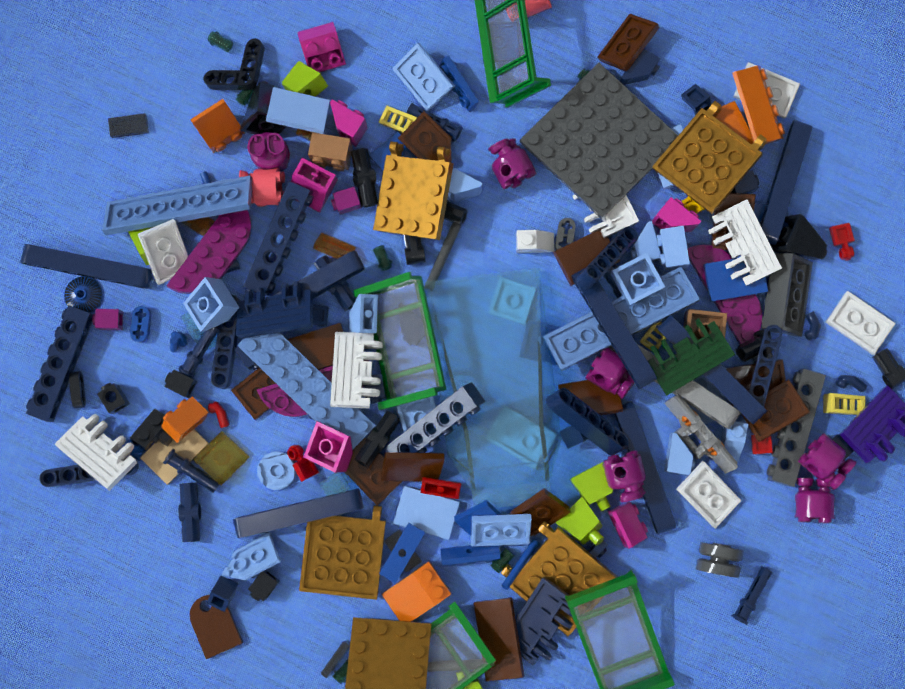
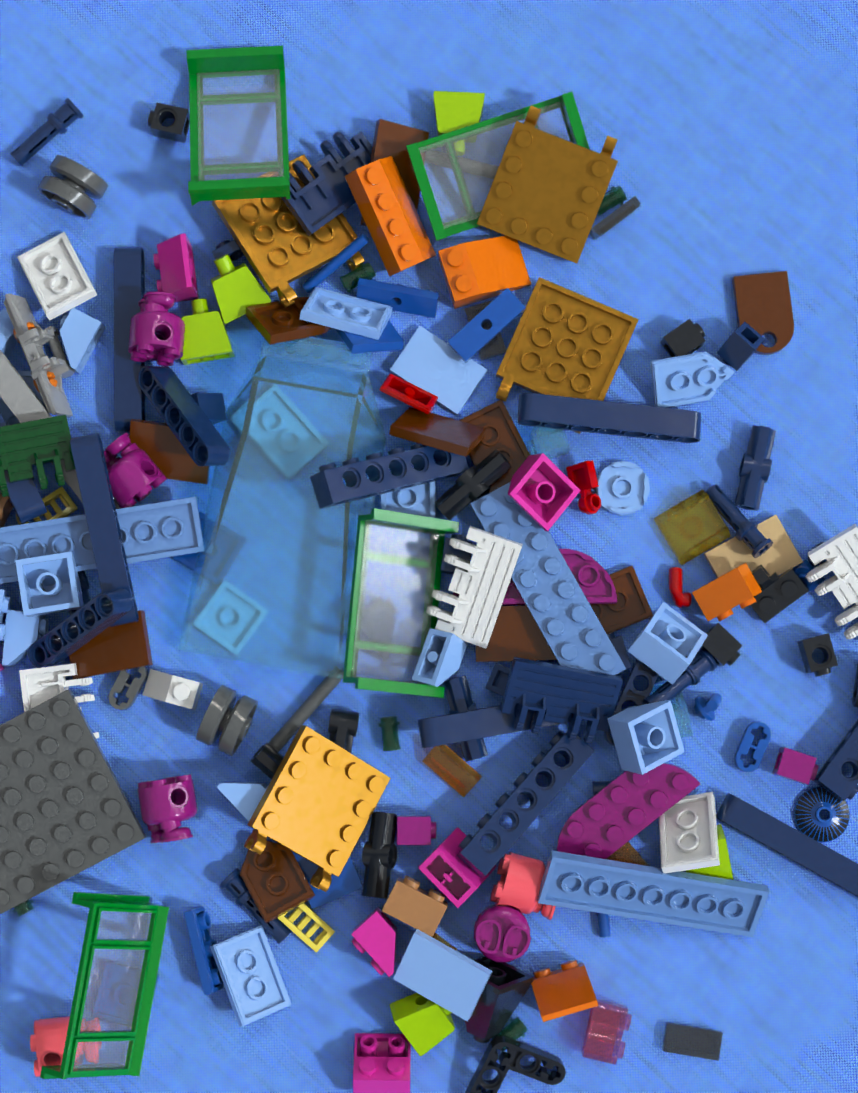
camera: 160 degrees left, 0 degrees up
(184, 108) = (605, 1032): none -> clear pink brick
(213, 371) = (668, 643): none -> light blue slope
(490, 230) = (224, 718): none -> dark grey wheel
(492, 609) = (390, 215): none -> orange slope
(660, 628) = (175, 132): none -> black brick

